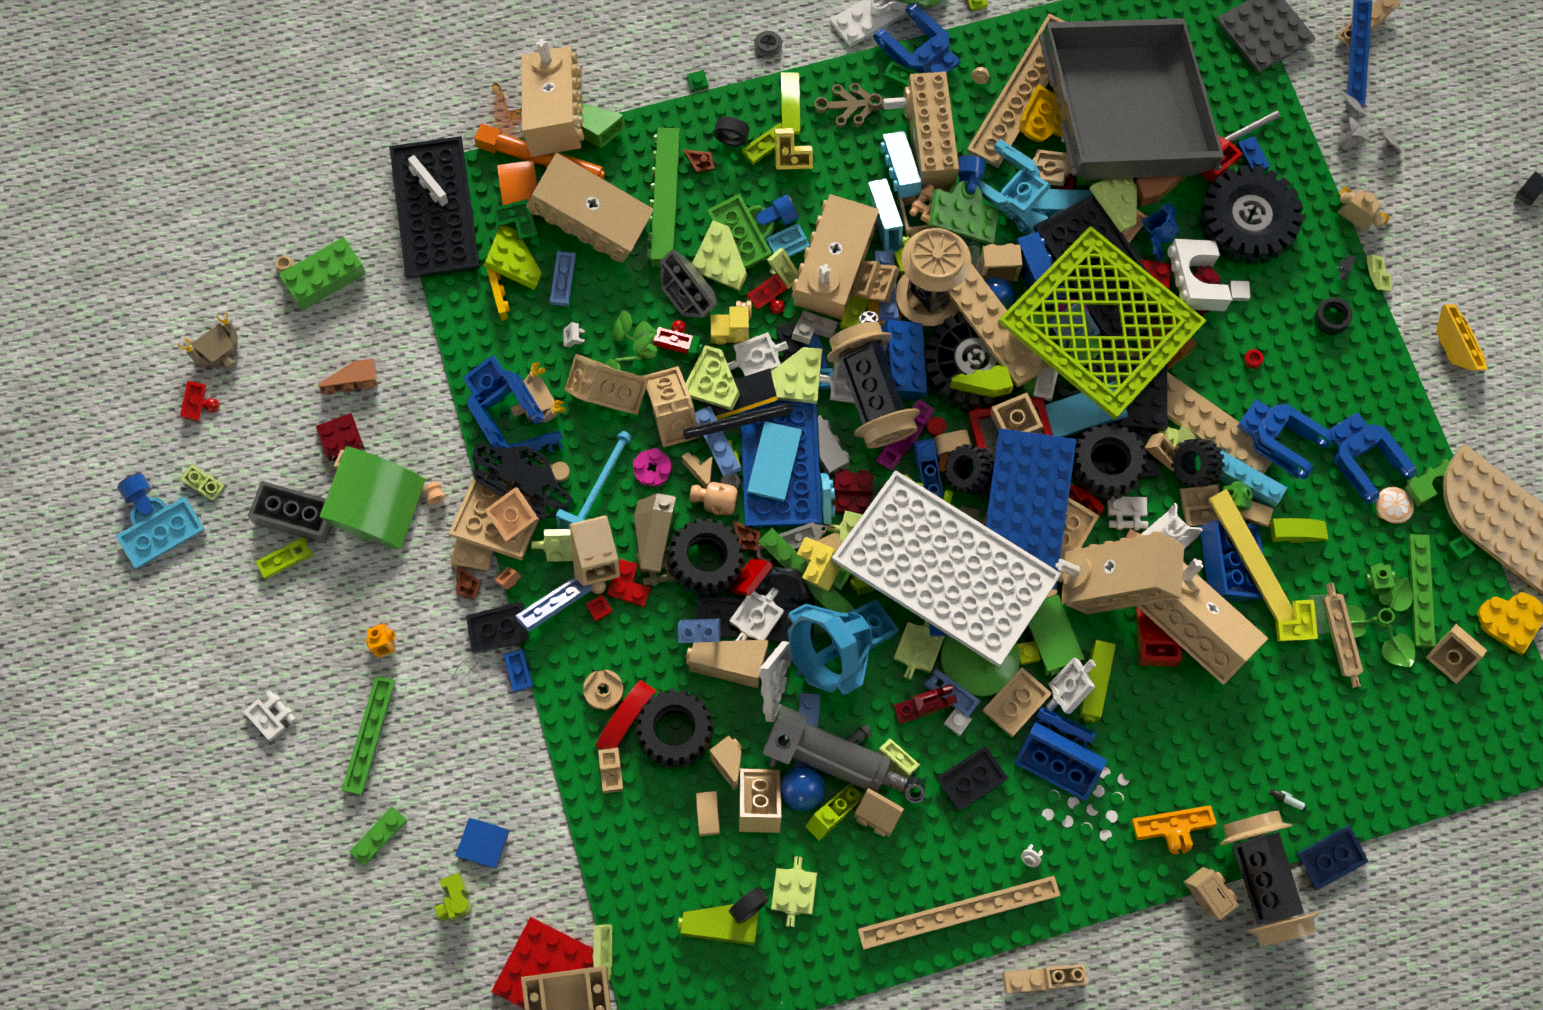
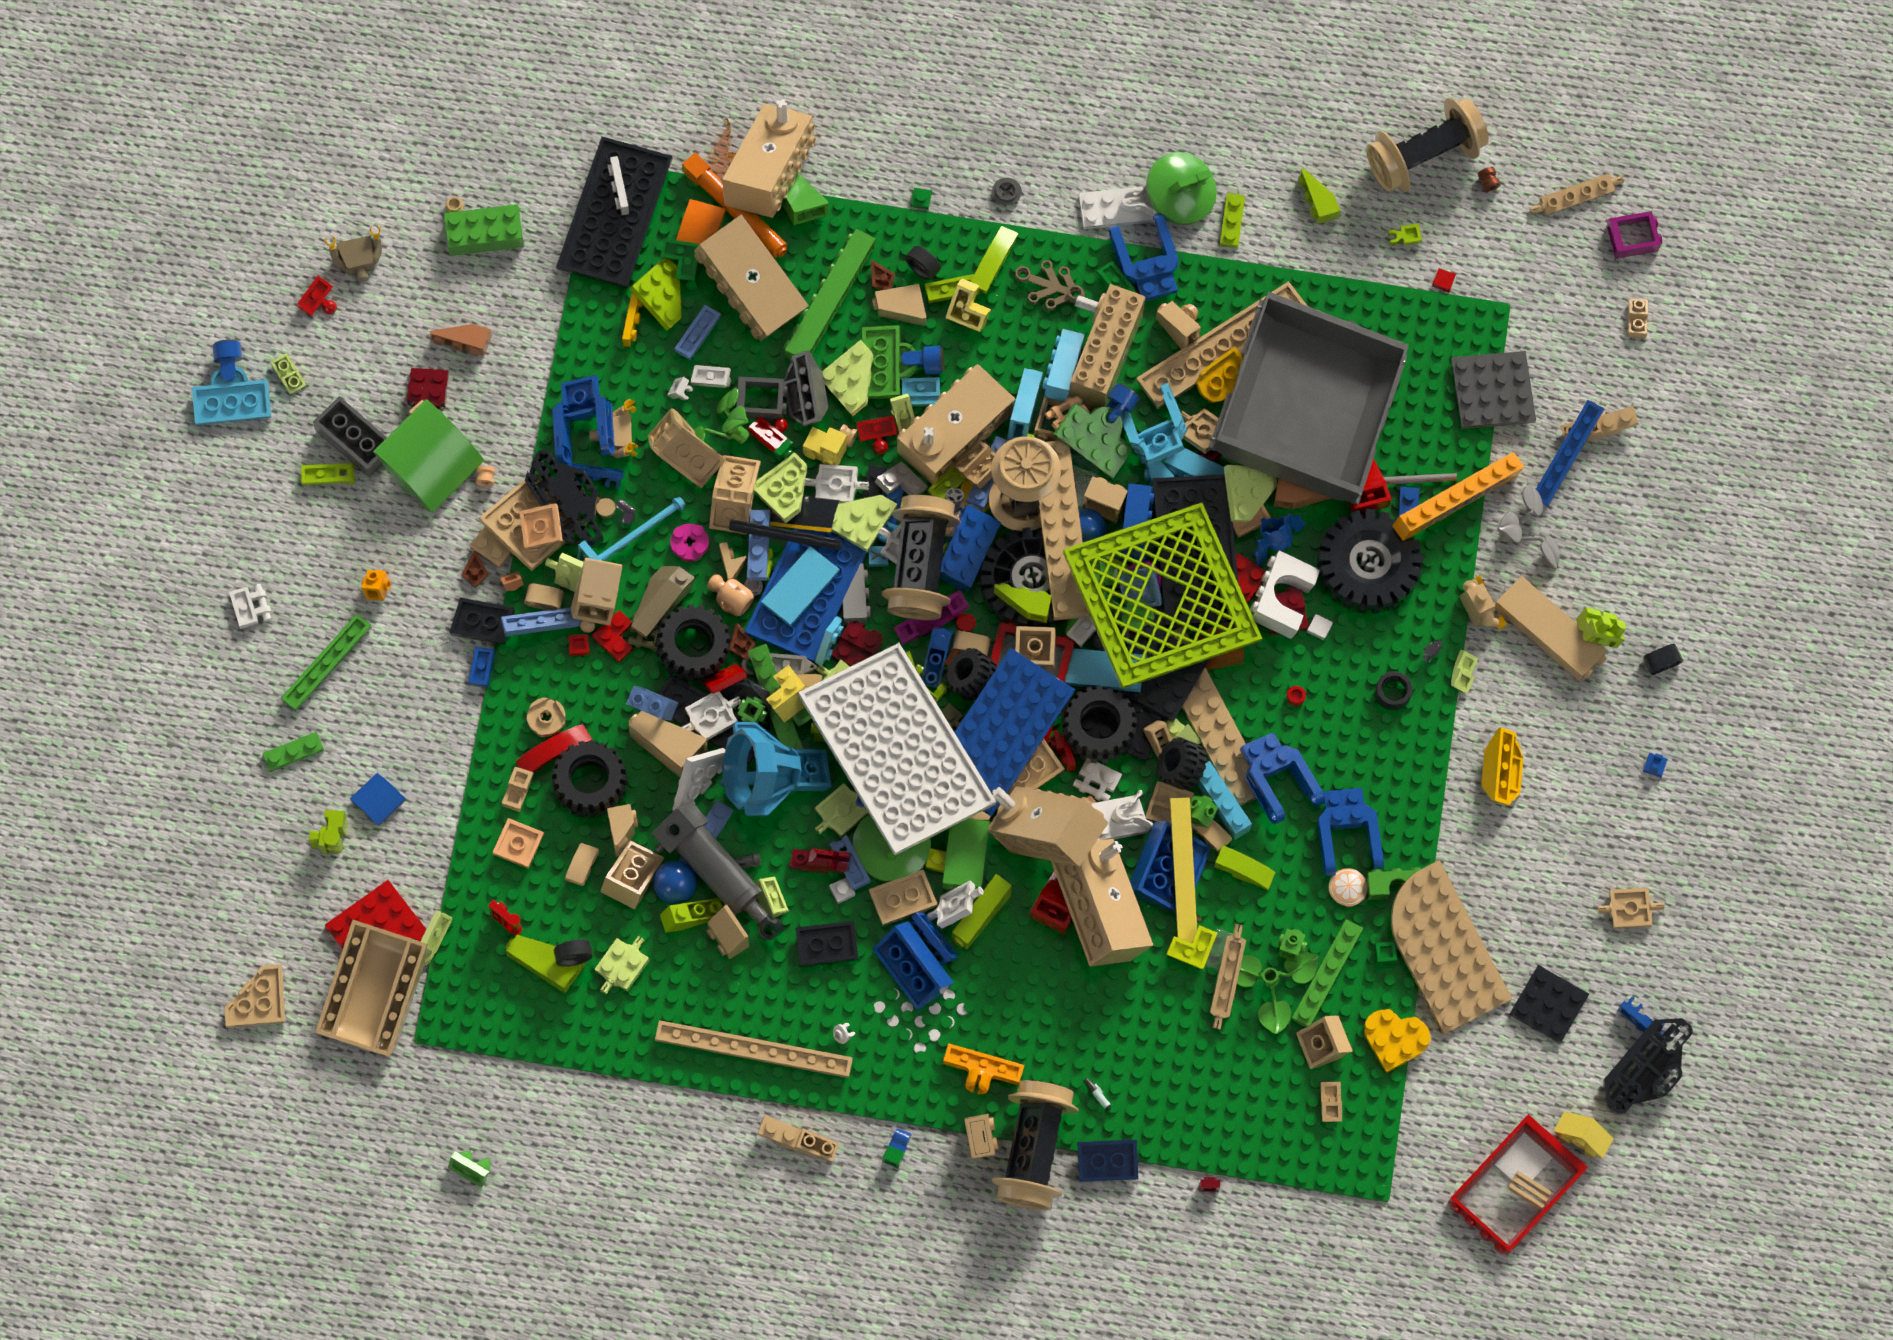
camera: 25 degrees right, 0 degrees up
(544, 579) = (543, 597): none -> tan beam
(582, 466) = (628, 511): none -> arm
(595, 311) = (711, 376): none -> white plate
(638, 822) = (518, 843): none -> light nougat plate
(659, 900) = (509, 921): none -> red plate
(663, 322) = (755, 413): none -> dark grey window
(731, 175) = (901, 304): none -> tan slope
(800, 596) = (745, 710): none -> bright green brick
(826, 405) = (875, 558): none -> medium azure tile
(978, 88) = (1178, 324): none -> tan slope
(1137, 941) = (897, 1148): none -> leg
(1294, 127) = (1458, 496): none -> light orange brick
(1430, 205) = (1550, 629): none -> tan brick
(1432, 834) = (1209, 1184): none -> dark red plate
(1474, 183) = (1601, 627): none -> lime hips
(1493, 708) = (1331, 1101): none -> tan slope

